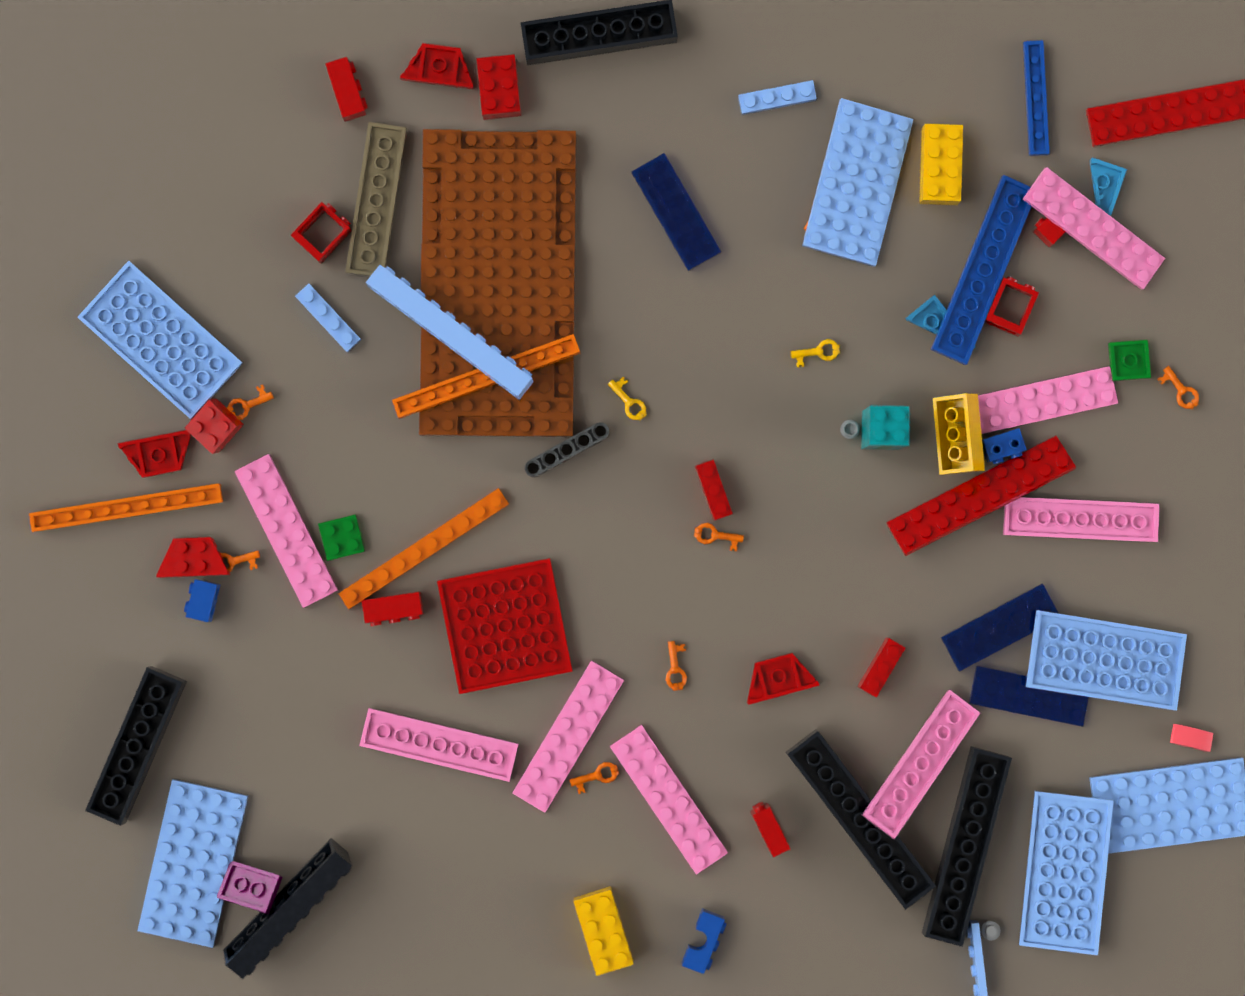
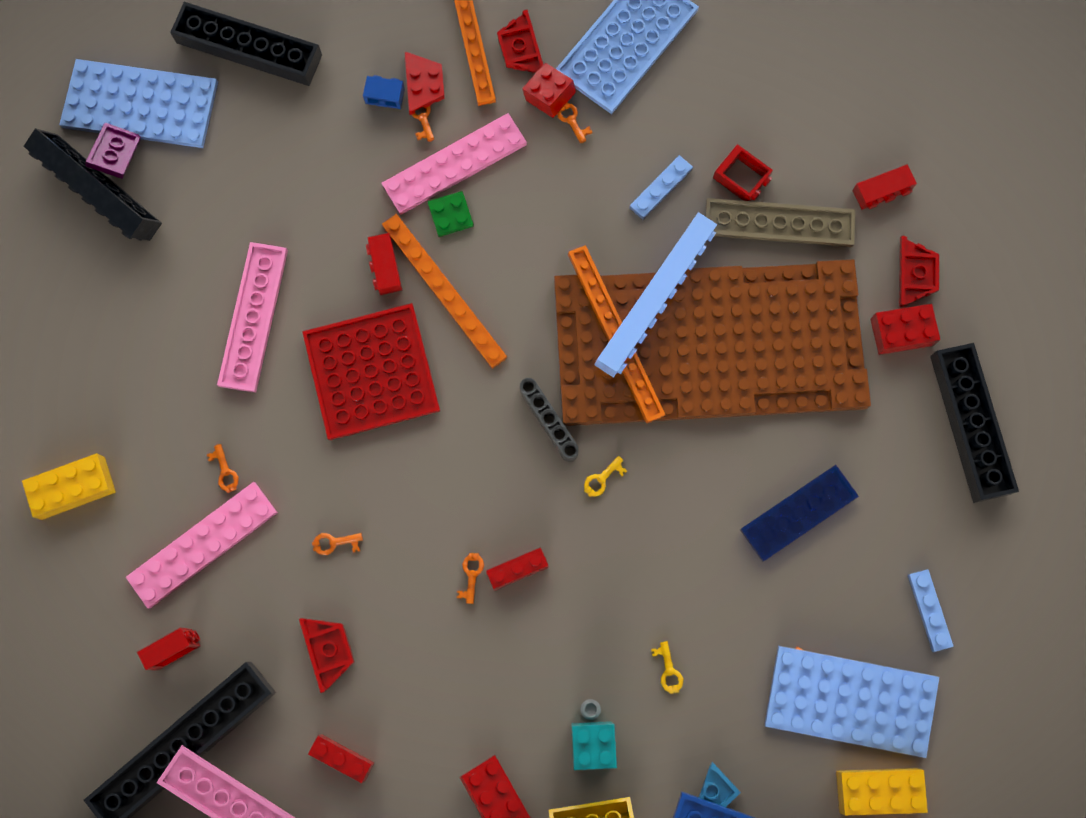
camera: 90 degrees right, 10 degrees down
(568, 736) = (264, 440): bright pink plate -> none
(699, 957) = (41, 583): blue arch -> none

